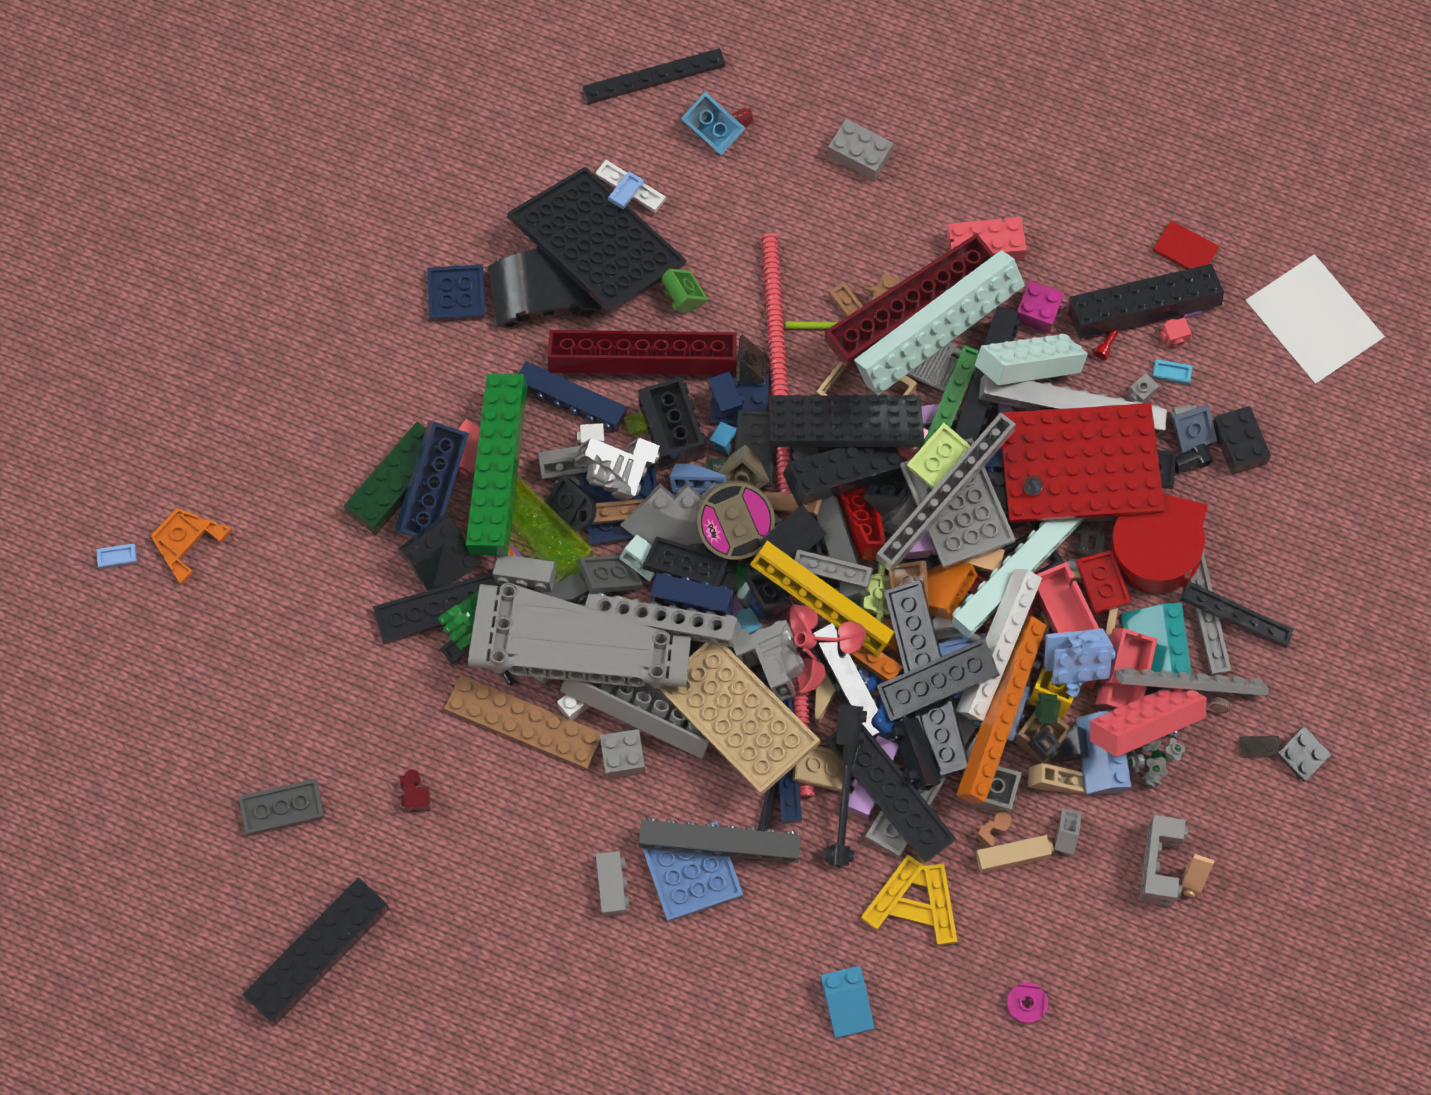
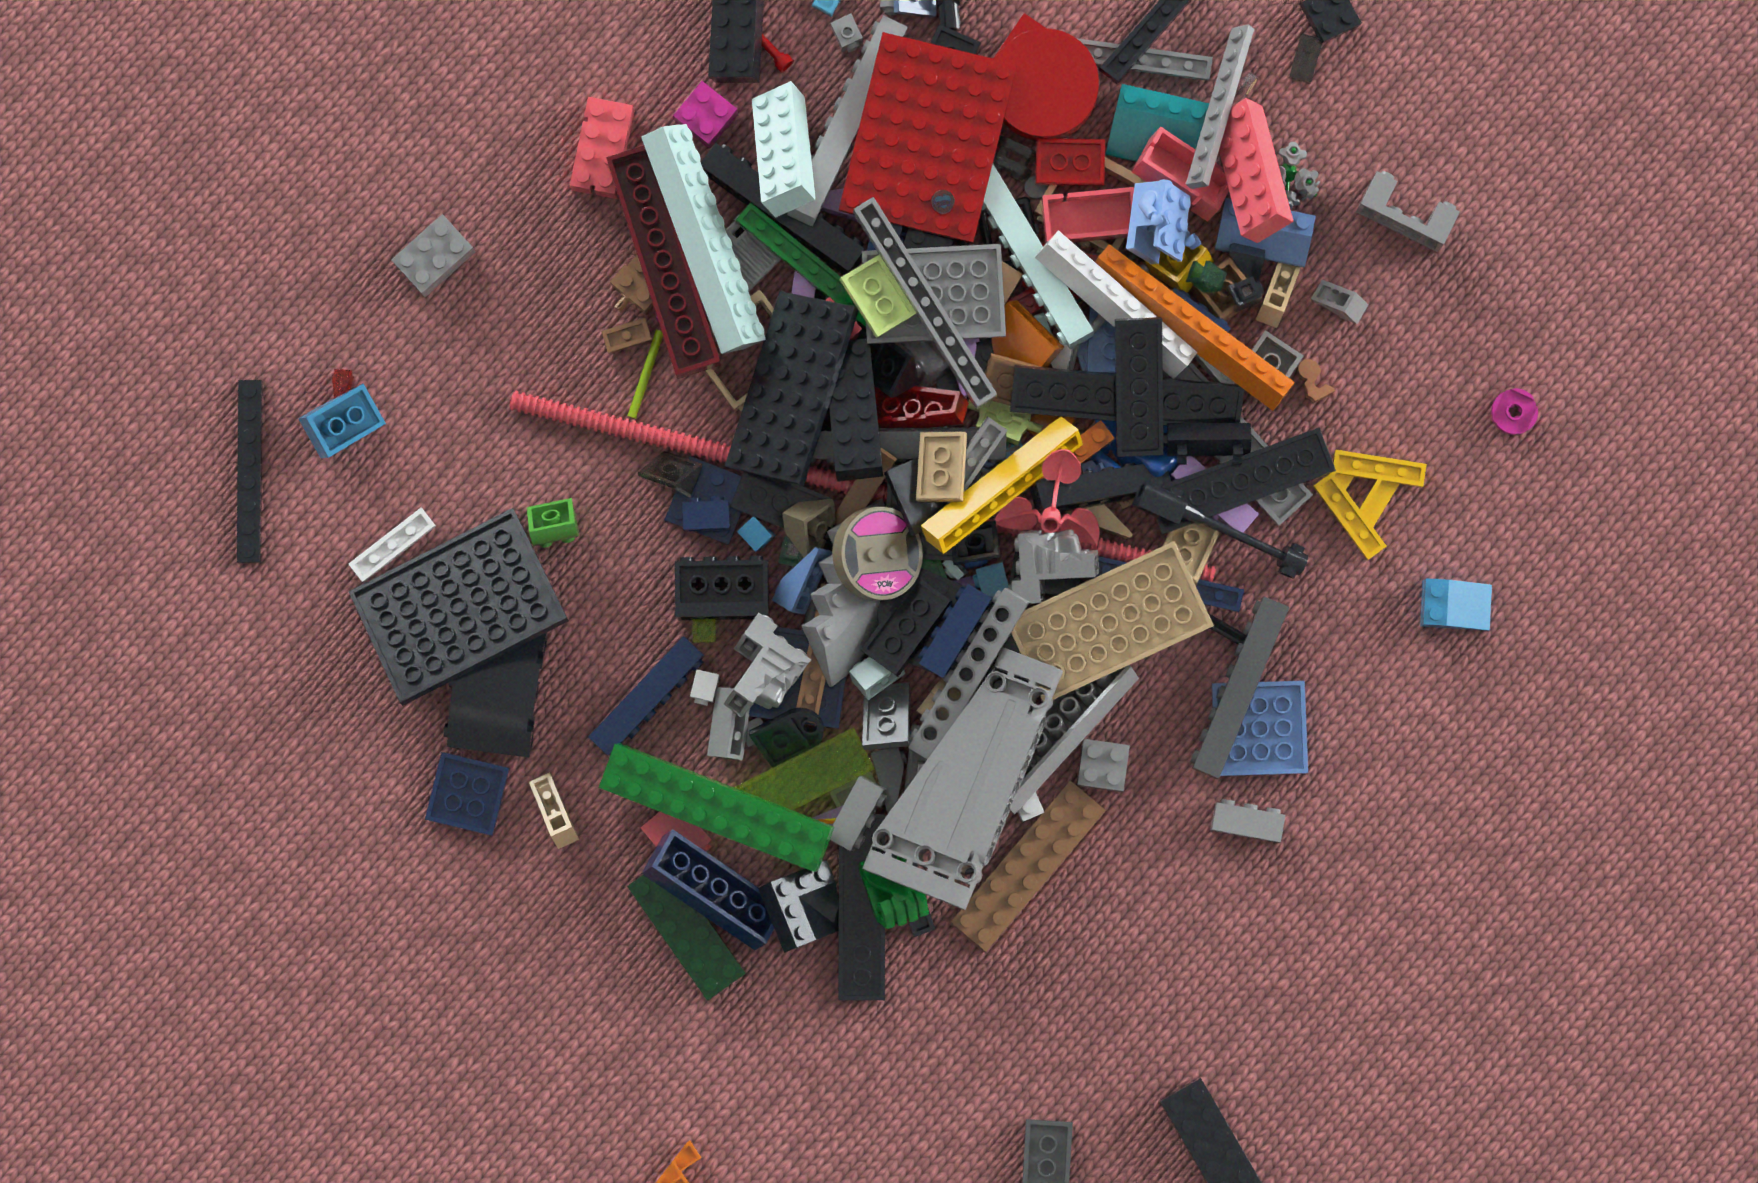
camera: 70 degrees left, 15 degrees up
(414, 798) = (1082, 1014): dark red brick -> none
(460, 356) = (553, 811): none -> tan slope
(626, 190) = (399, 552): light blue tile -> none
(642, 352) = (620, 596): dark red brick -> none
(820, 545) = (941, 467): none -> tan tile
(1014, 854) = (1348, 369): tan brick -> none
(1196, 875) = (1437, 183): light nougat slope -> none

